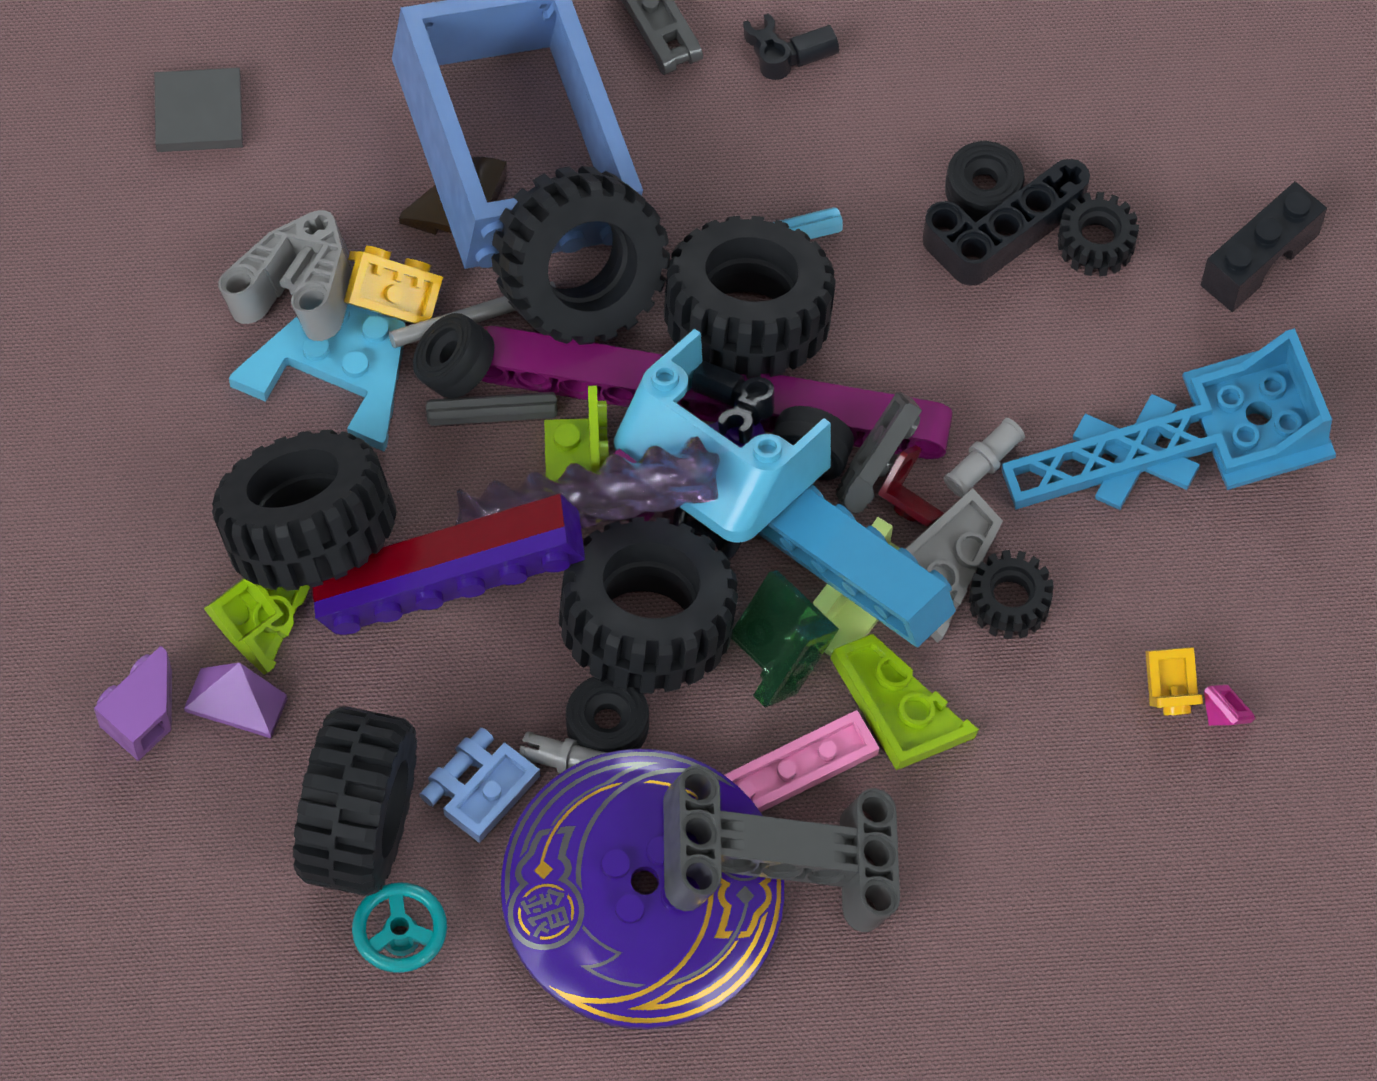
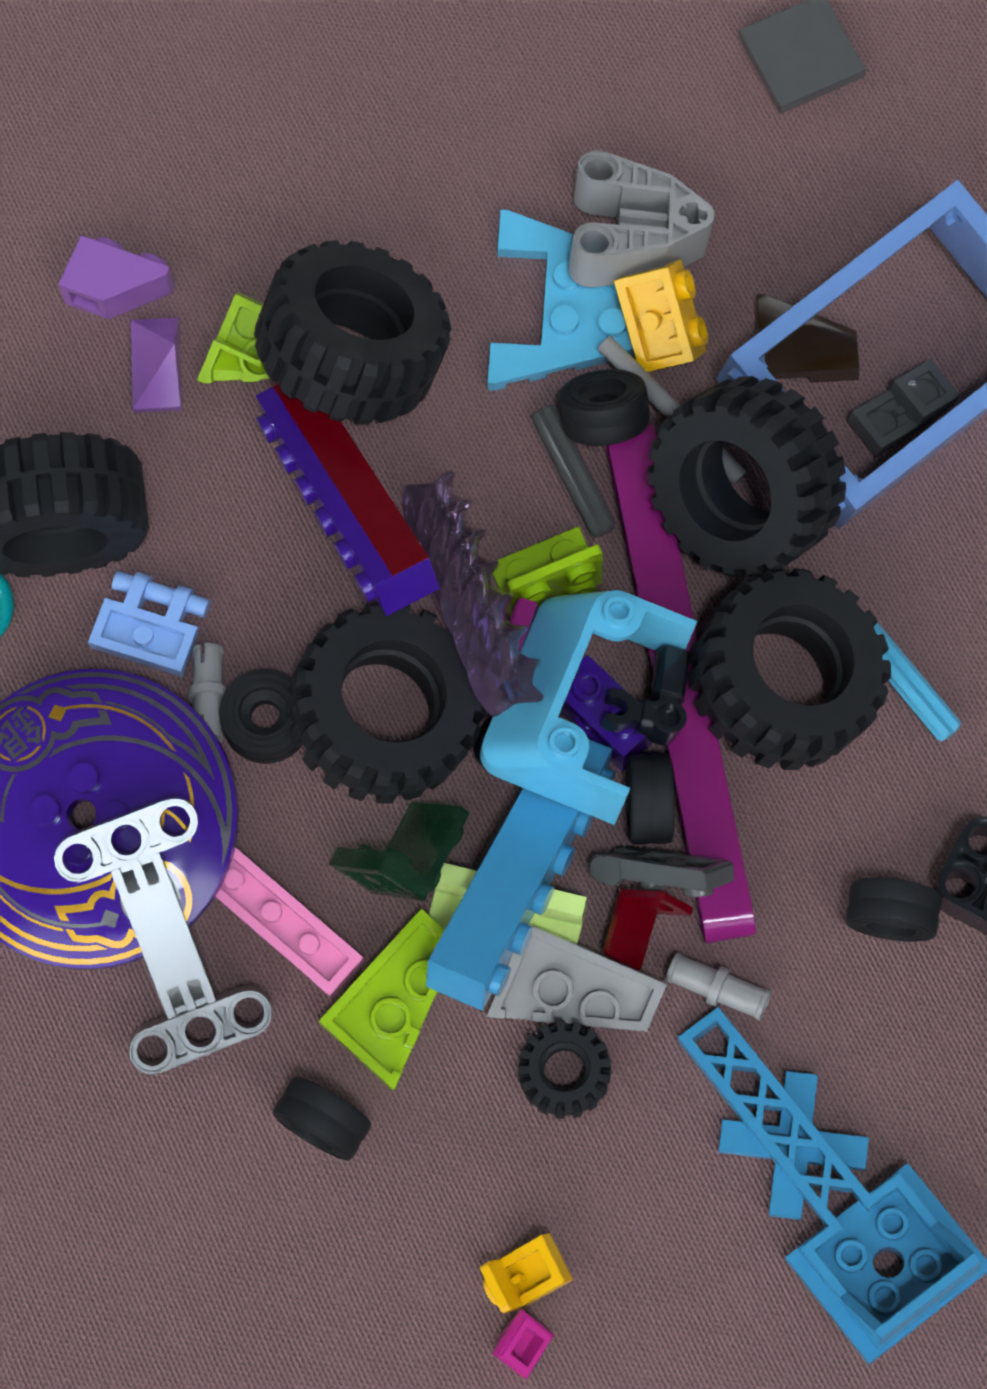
camera: 75 degrees right, 10 degrees up
(545, 141) = (904, 408): none -> dark grey slope
(975, 303) = (893, 909): none -> black tyre
(987, 785) = (321, 1118): none -> black tyre

